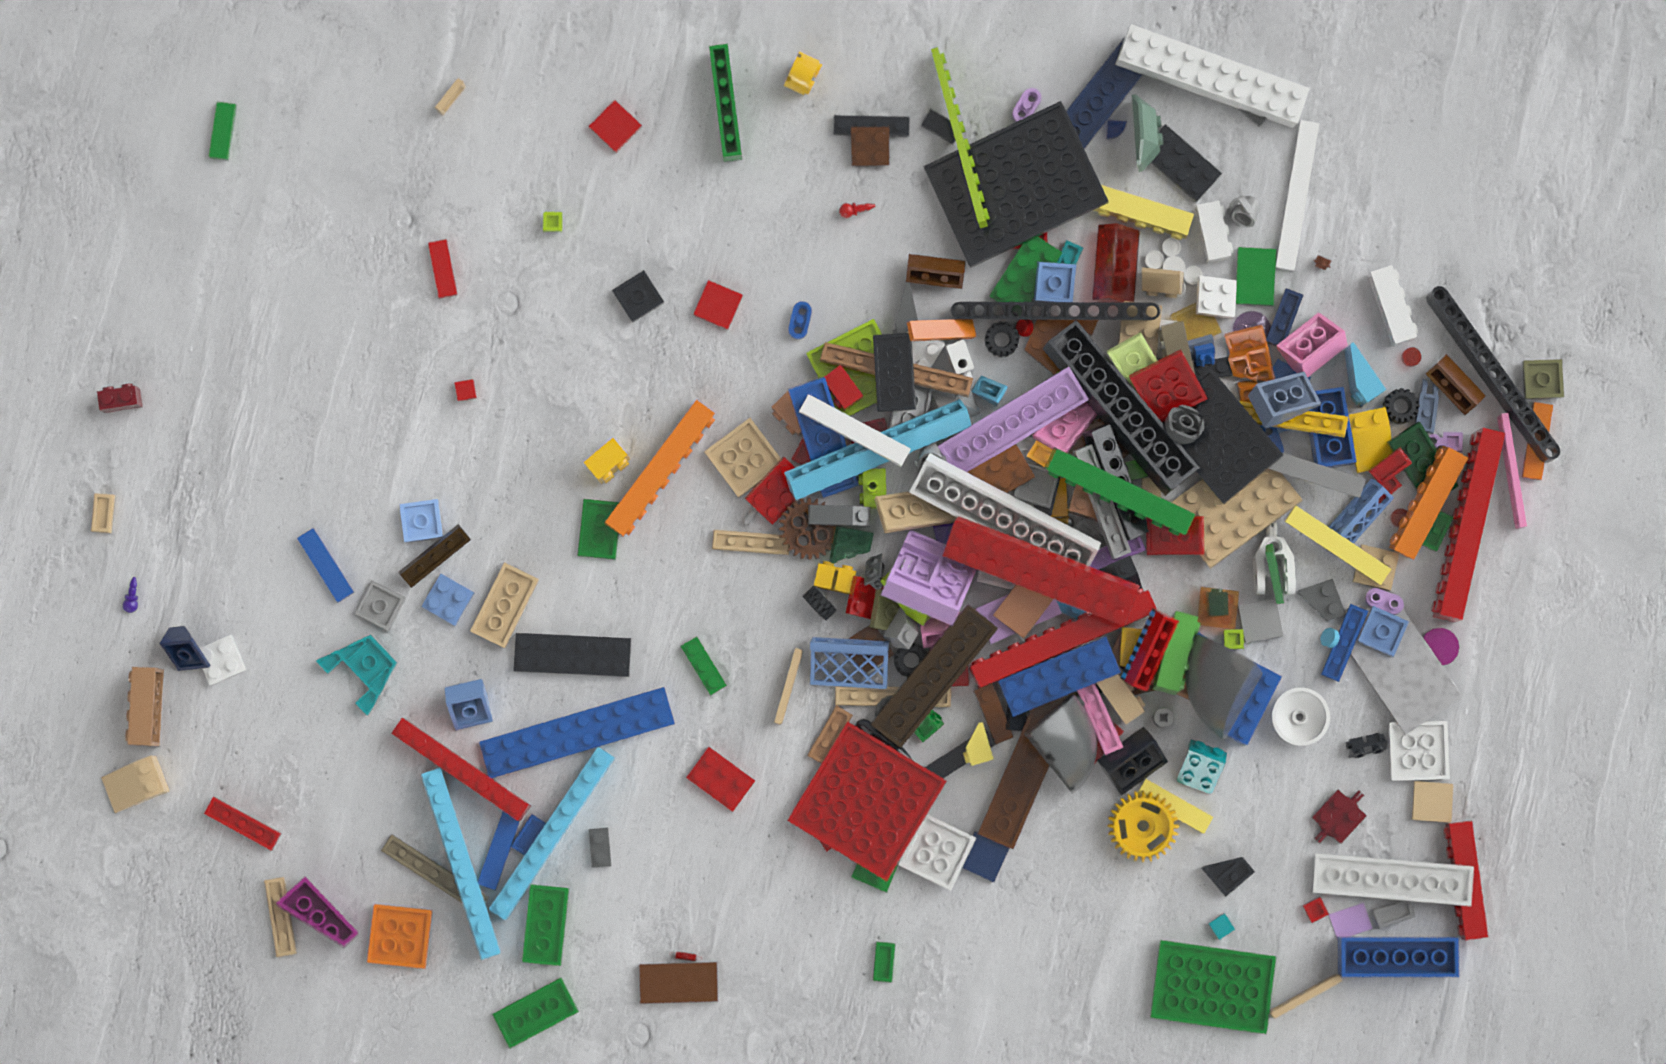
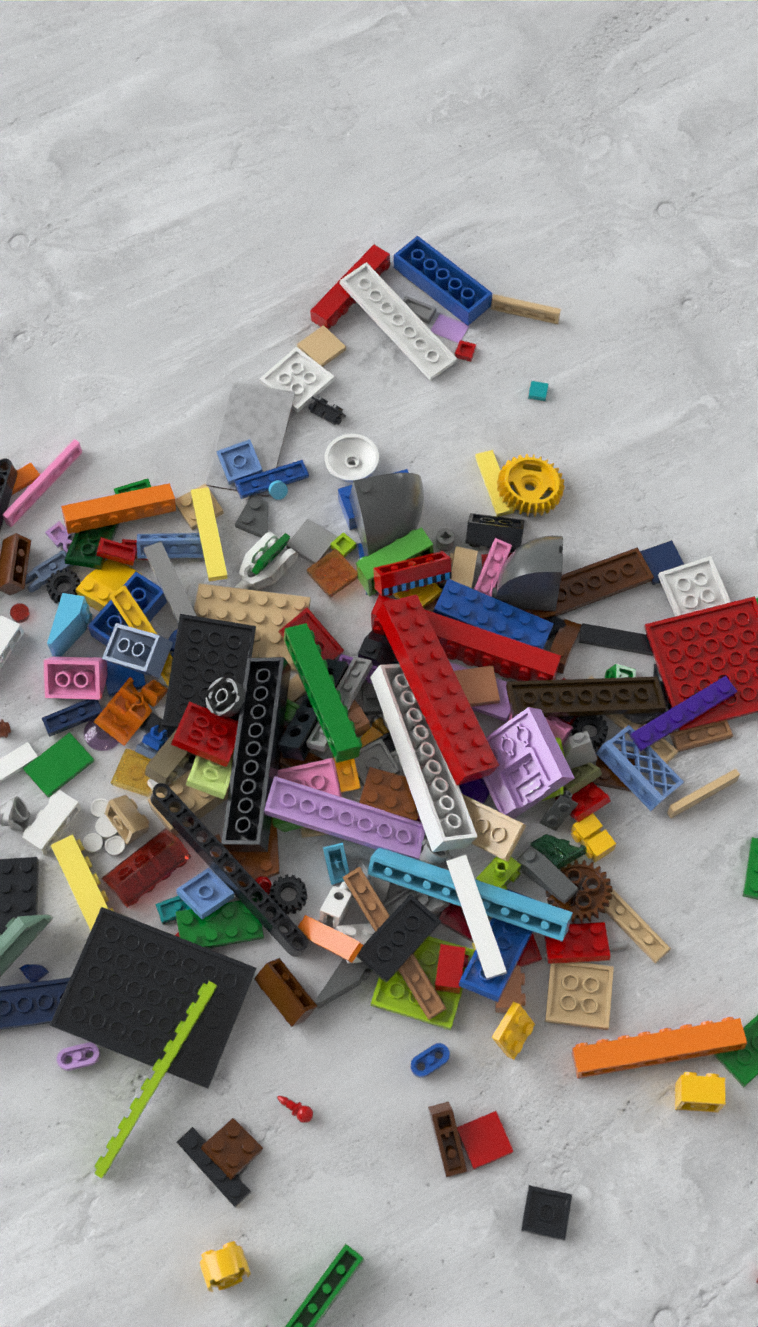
camera: 135 degrees left, 20 degrees down
(742, 282) = (447, 1138): none -> reddish brown slope
(762, 387) = (513, 1030): none -> yellow plate
(819, 603) = (623, 827): black tyre -> none
(855, 732) = (683, 713): none -> dark purple plate
(939, 125) = (160, 1110): black tile -> none
(978, 747) = (599, 627): light yellow slope -> none
(1202, 766) = (447, 487): teal bracket -> none
(1213, 986) = (581, 362): green plate -> none
(1216, 297) = (102, 774): white plate -> none
(1217, 603) = (331, 570): clear green brick -> none
(1228, 874) = (501, 414): black wing -> none
(1339, 816) = (391, 387): dark red plate -> none
(1384, 601) = (217, 479): lavender plate -> none
(1396, 516) = (147, 524): clear red tile -> none
(1443, 644) = (209, 425): magenta tile -> none
(1468, 525) = (110, 470): red brick -> none

